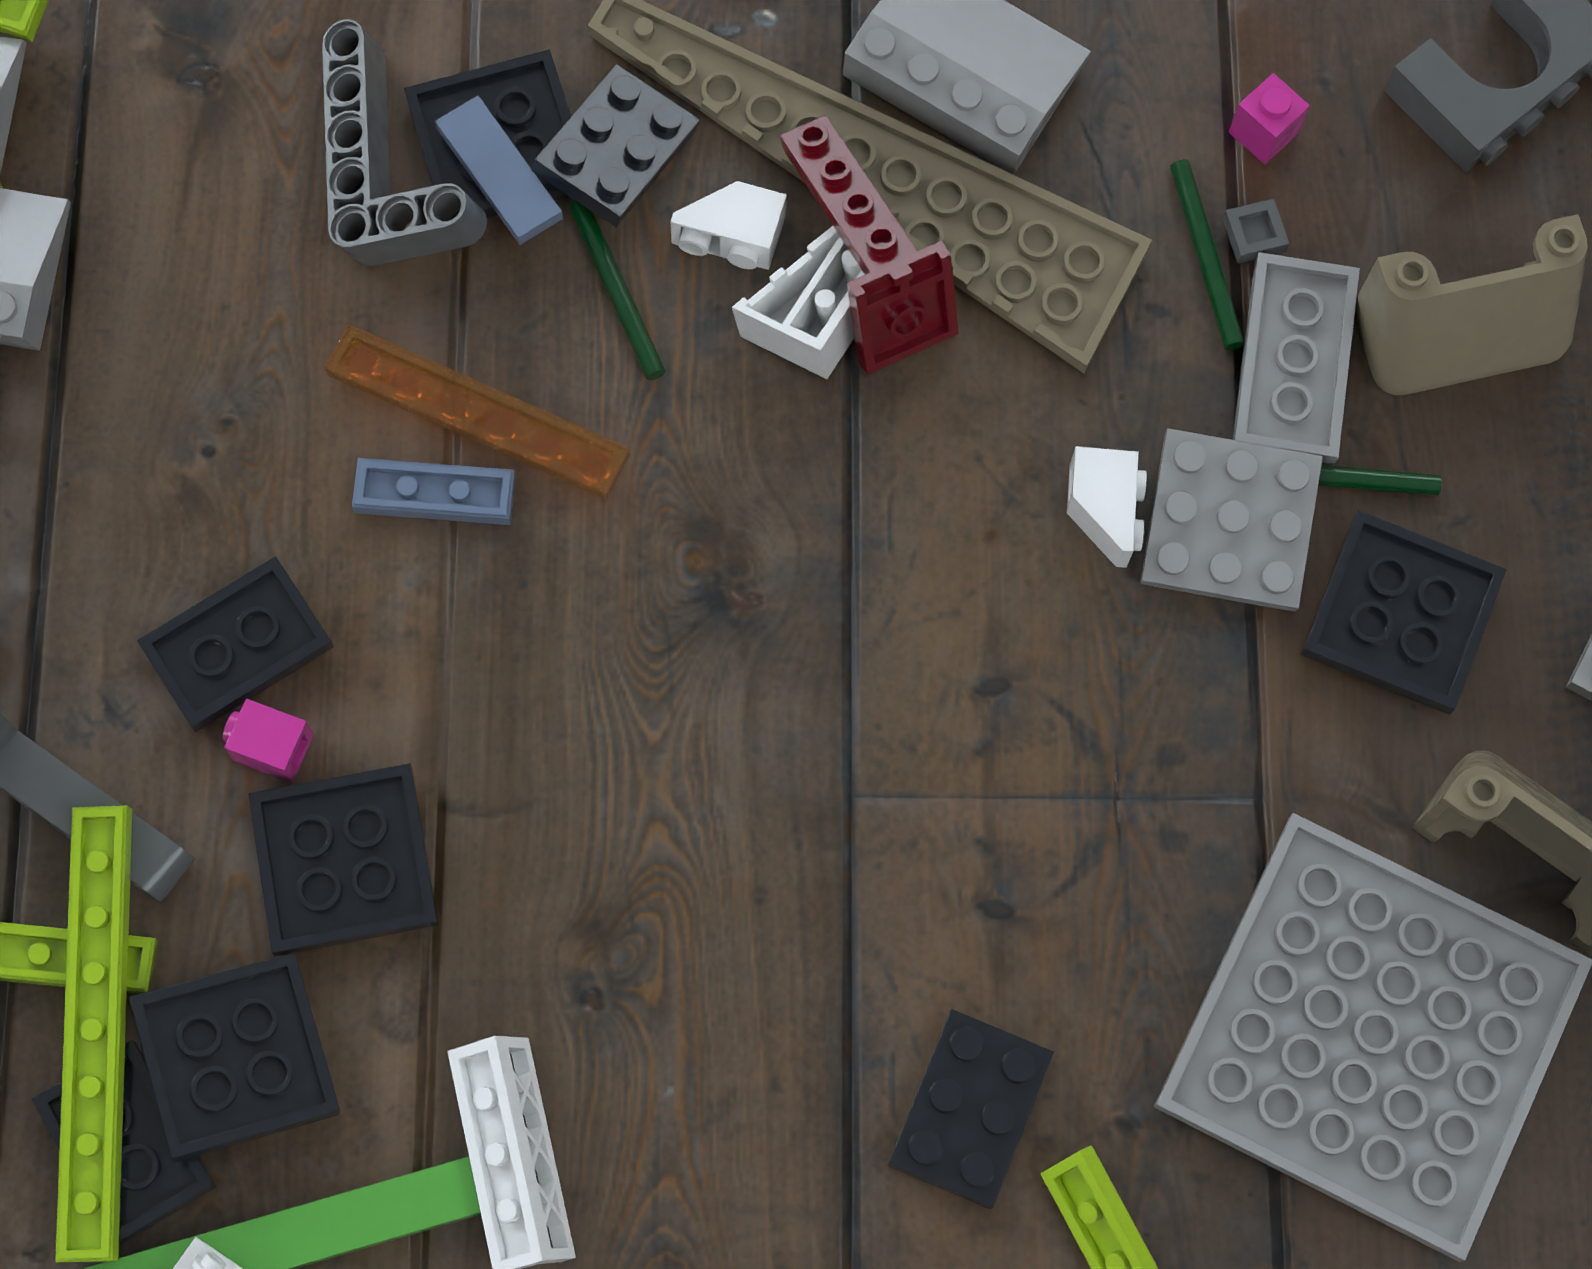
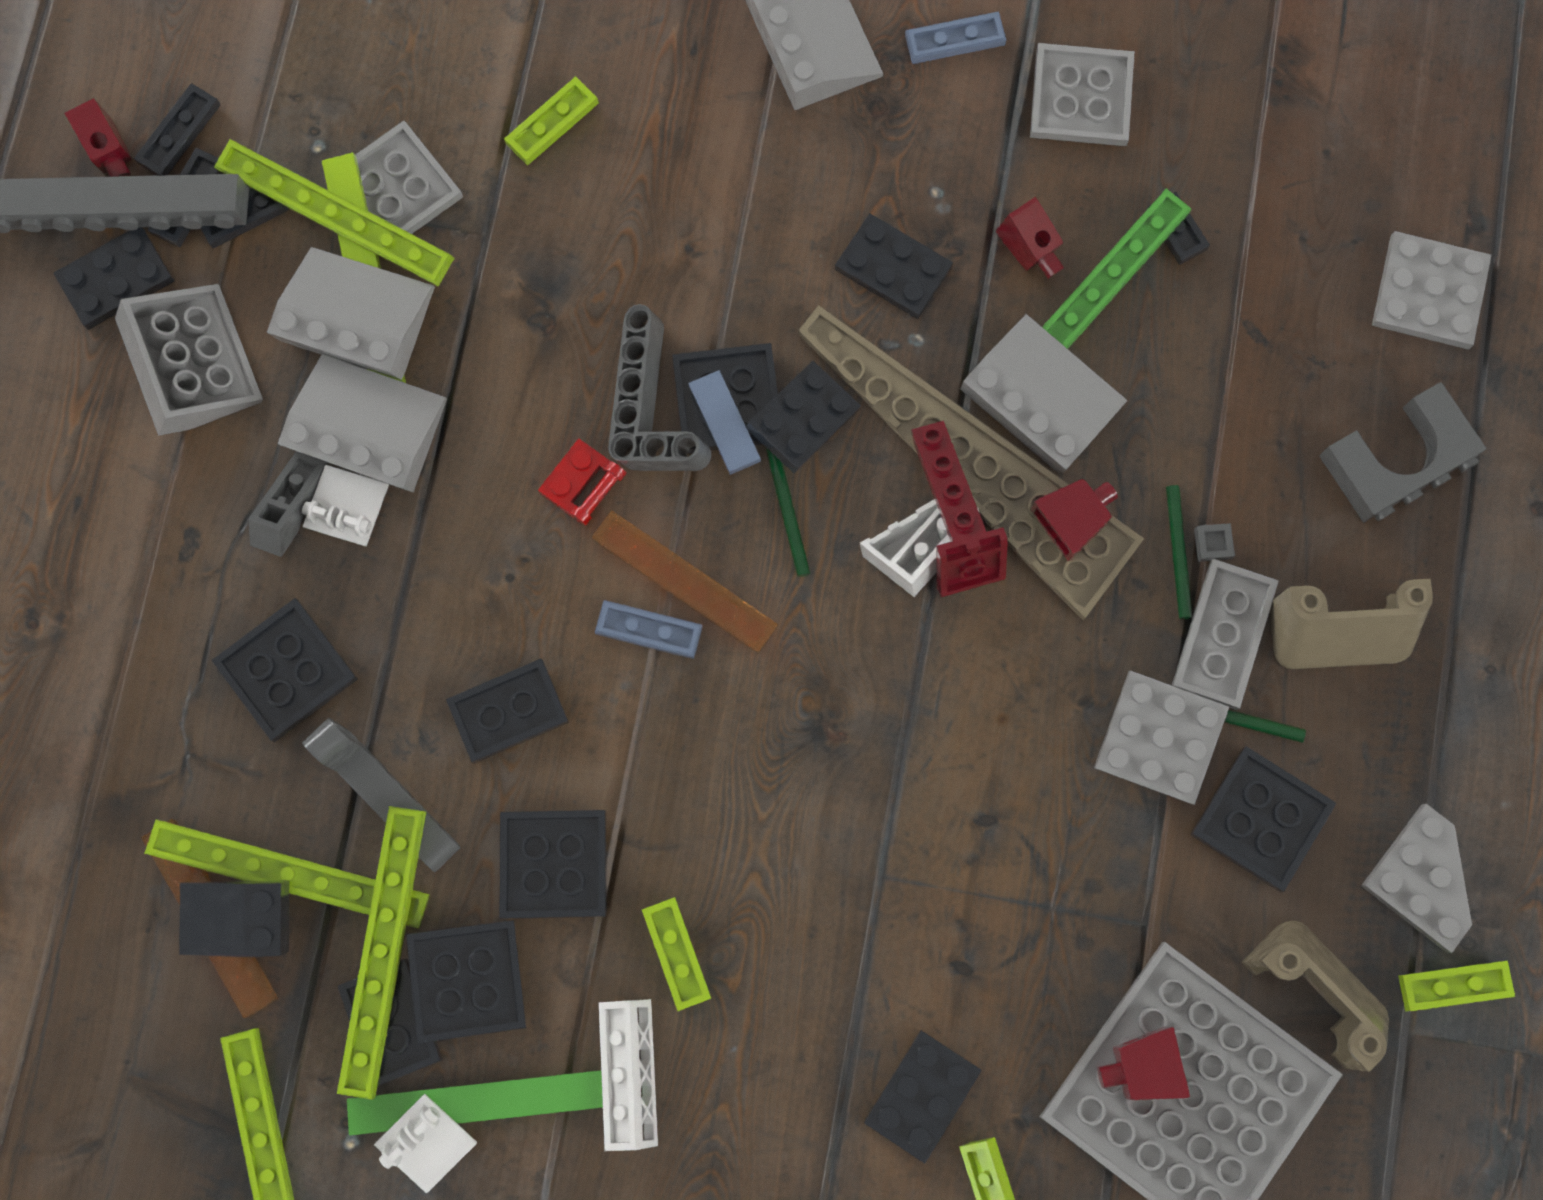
camera: 15 degrees right, 5 degrees up
(267, 740) = (517, 778): dark pink brick -> none
(283, 286) = (573, 476): none -> red plate
(556, 961) = (676, 954): none -> lime plate
(732, 223) = (870, 481): white slope -> none
(1043, 218) = (1074, 514): none -> dark red torso
(1104, 500) = (1080, 711): white slope -> none
(1269, 118) = (1237, 467): dark pink brick -> none
(1303, 997) = (1147, 1067): none -> dark red torso

